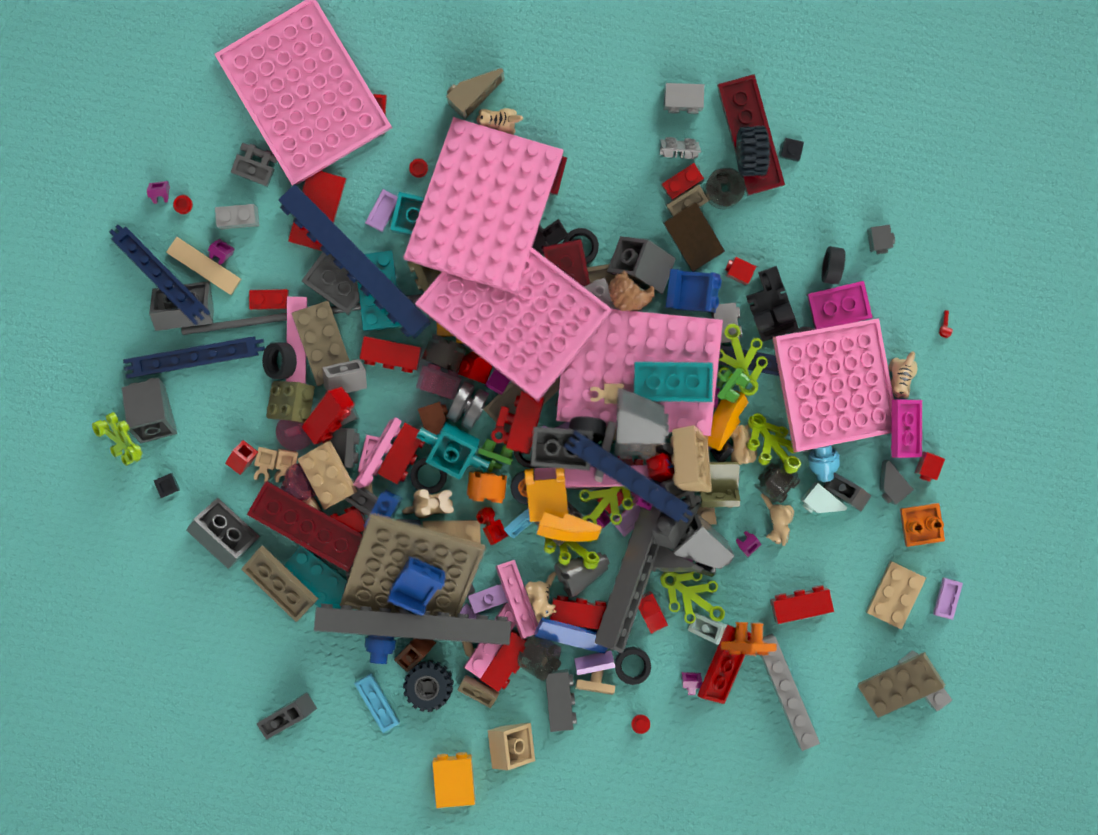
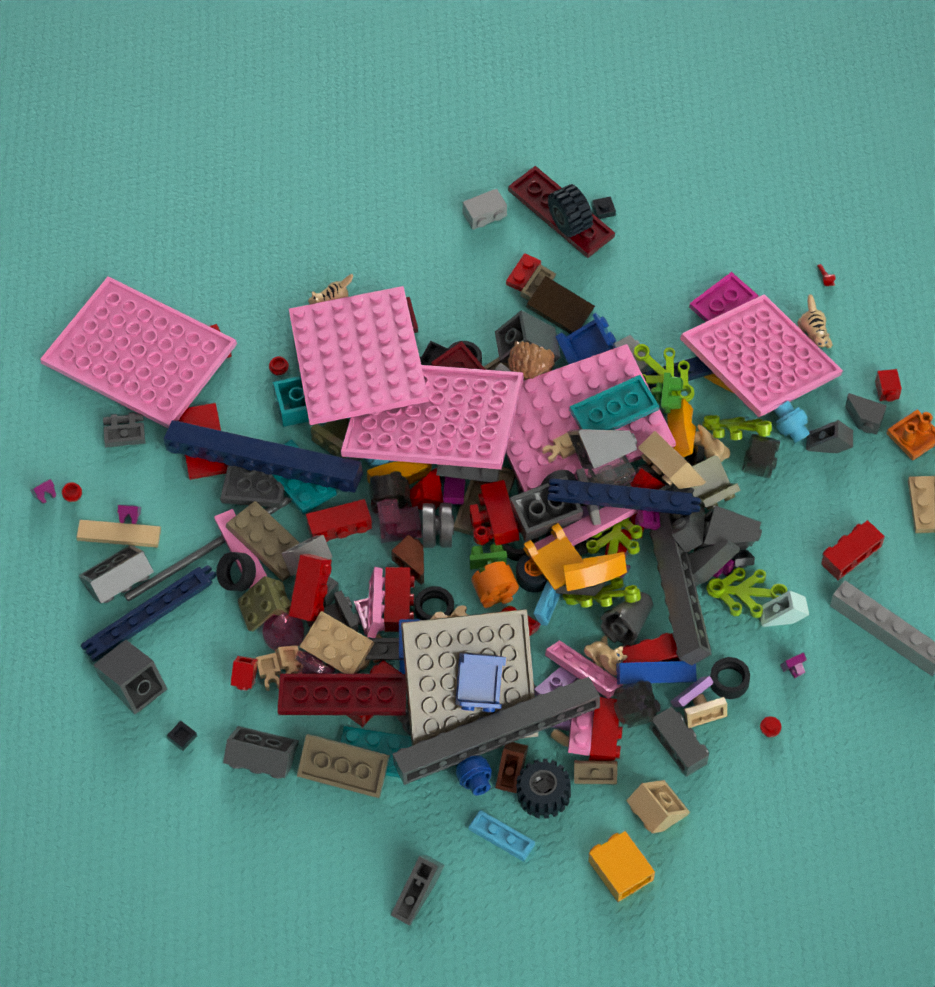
camera: 30 degrees left, 30 degrees down
(120, 436) = (89, 714): lime plant -> none
(158, 274) = (81, 549): dark blue hinge -> none
(237, 216) = (130, 475): light grey brick -> none
(268, 299) = (196, 533): red plate -> none
(382, 211) = (264, 414): lavender tile -> none
(452, 439) = (434, 574): teal brick -> none
(472, 92) = (295, 280): dark tan slope -> none
(628, 520) = (645, 558): lavender tile -> none
(651, 612) = (719, 622): red slope -> none
(688, 146) = (511, 243): light grey hinge -> none
(722, 670) = (815, 630): red tile -> none
(734, 192) = (564, 256): clear smoke brick -> none
(740, 270) = (618, 313): red brick -> none
(742, 645) = (824, 589): orange plate -> none
(749, 545) = (770, 523): magenta tile -> none
(771, 308) = (662, 324): black plate -> none
(780, 517) = (784, 486): tan animal -> none
(821, 501) = (813, 456): light aqua slope -> none
(833, 265) = (697, 269): black tyre -> none
(880, 239) = (724, 235): dark grey brick -> none
(906, 428) = (846, 363): dark pink plate -> none

